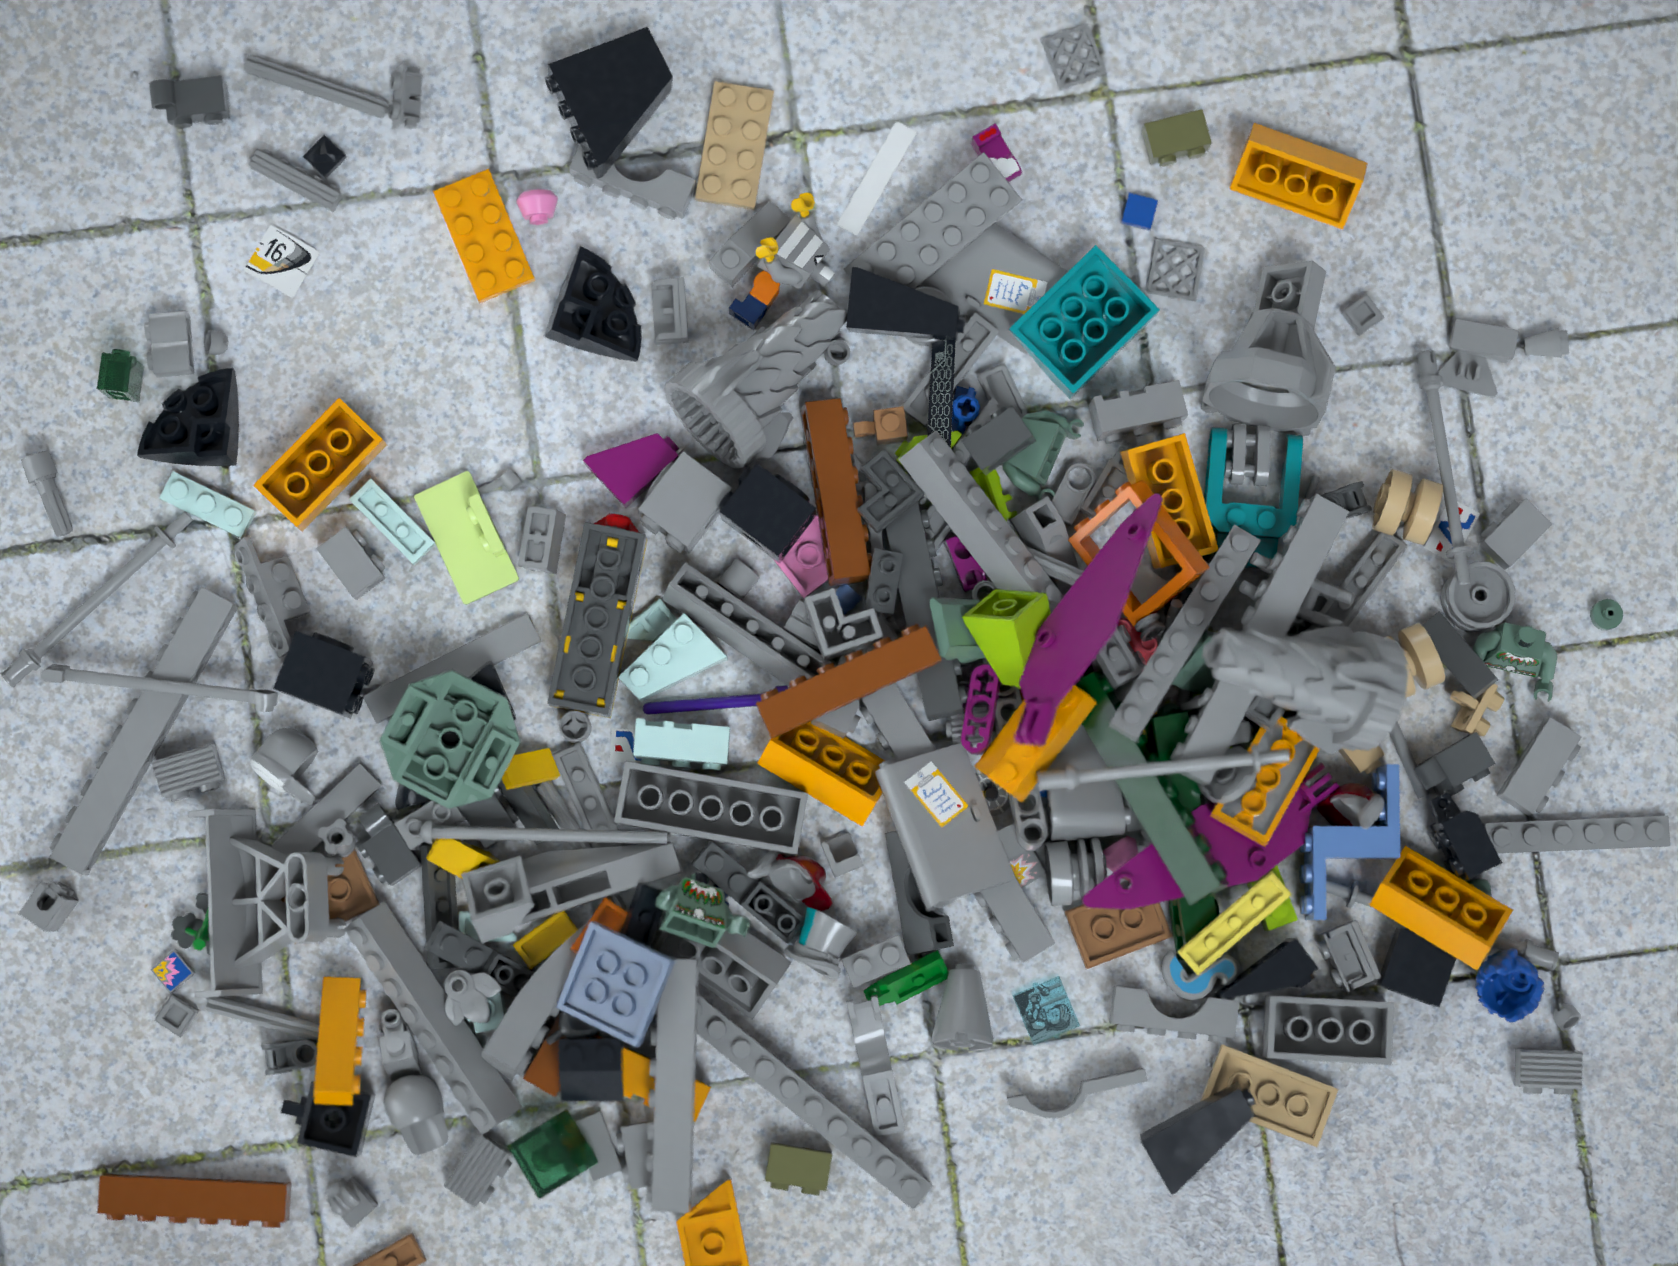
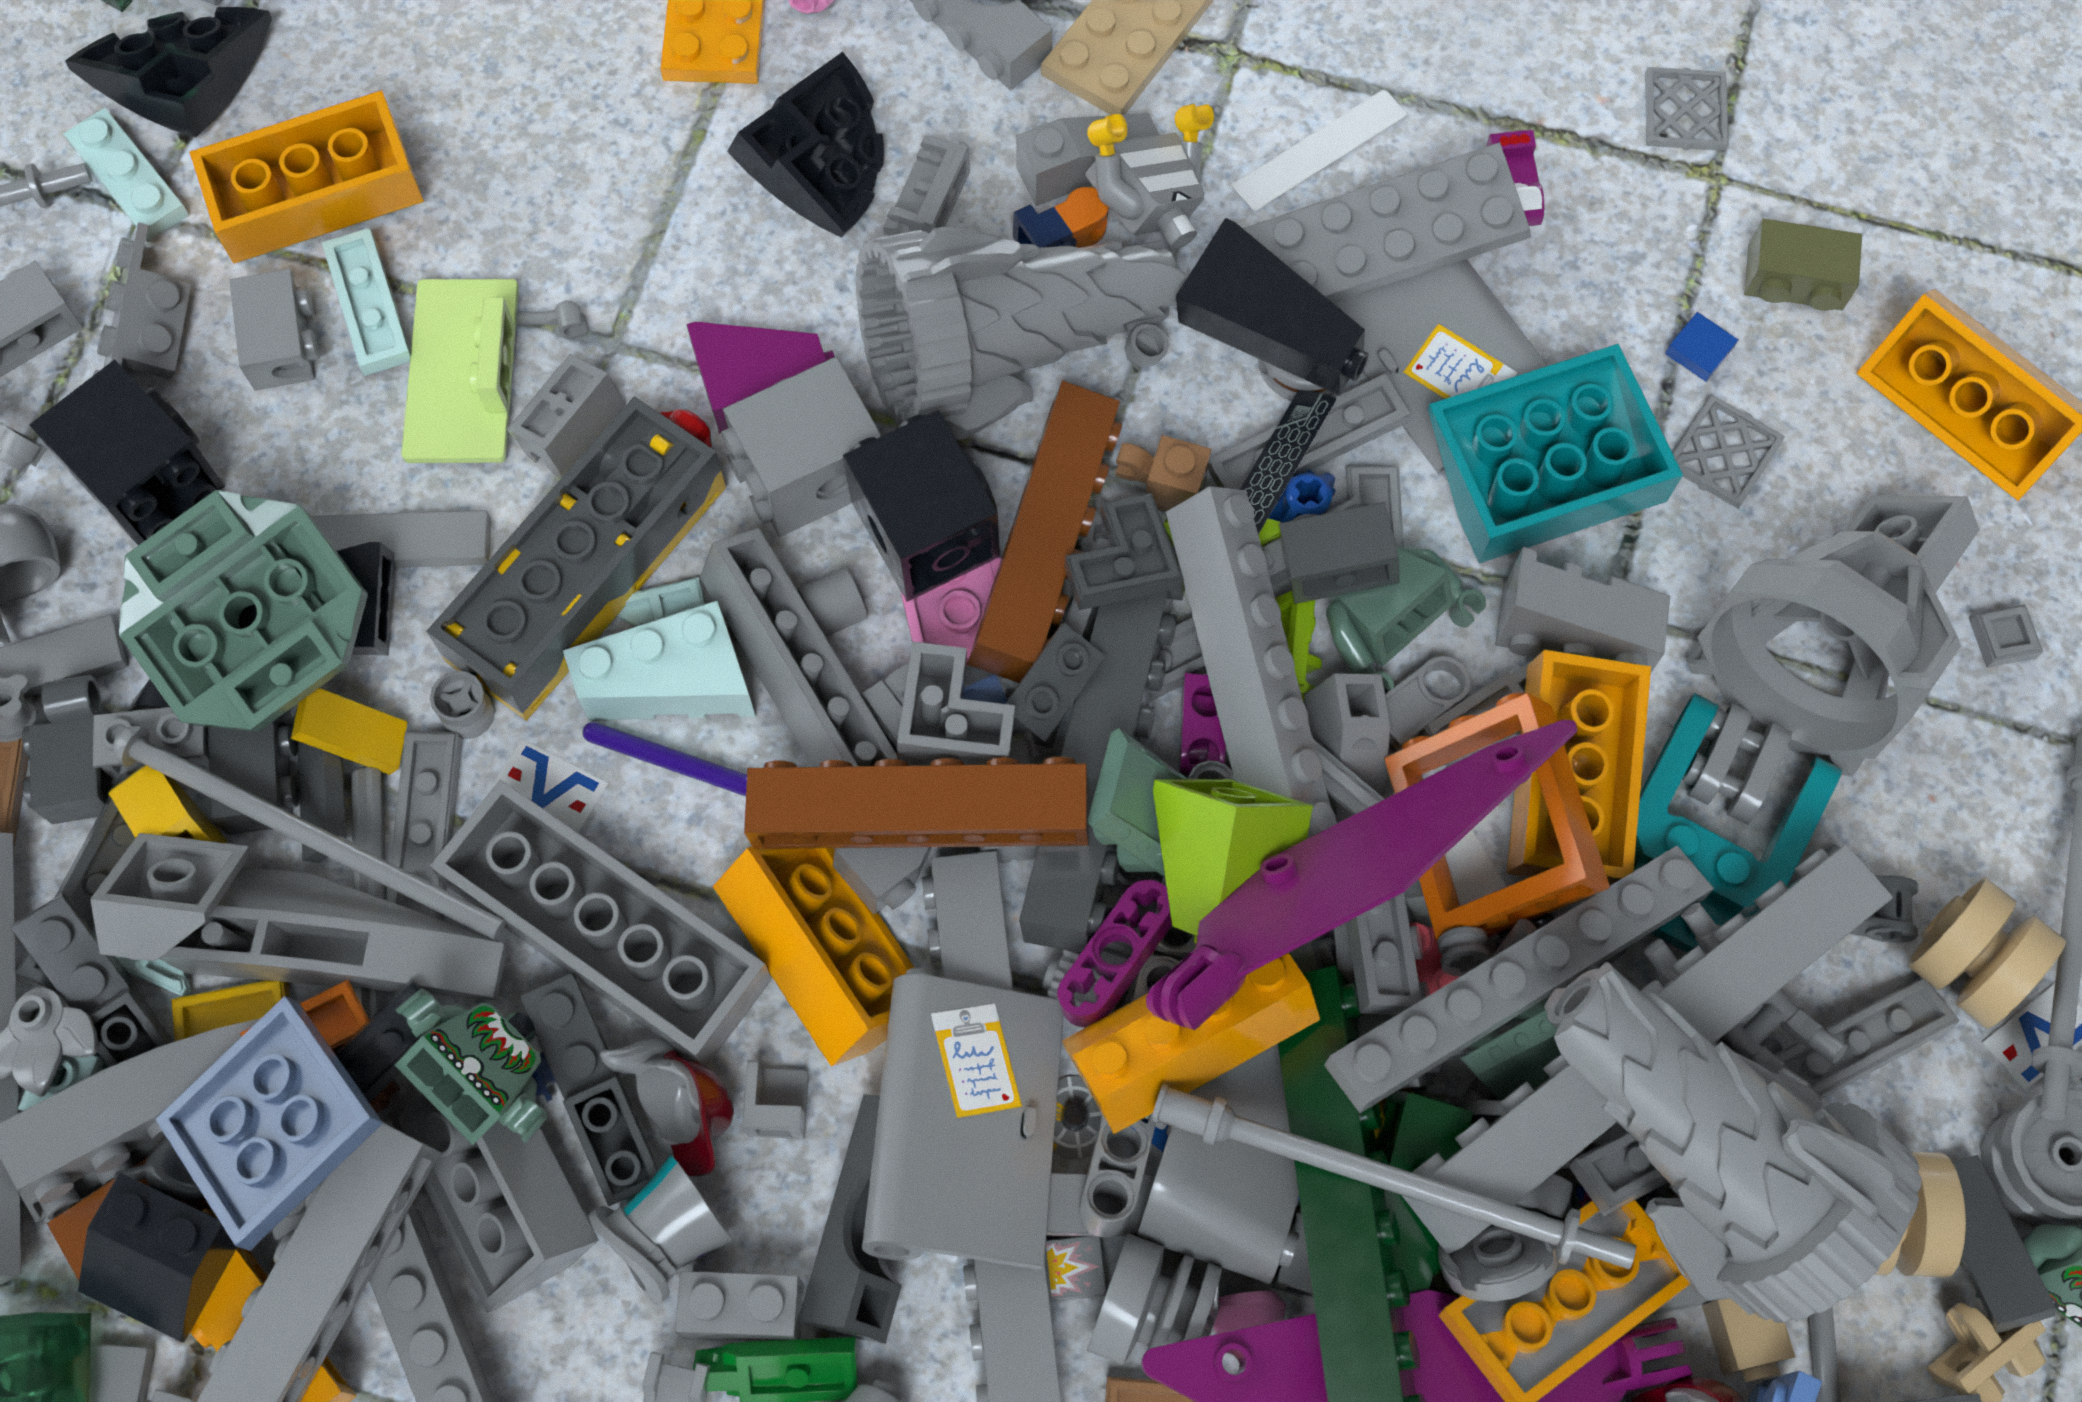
camera: 30 degrees right, 15 degrees down
(681, 744) = (607, 799): light aqua wedge -> none

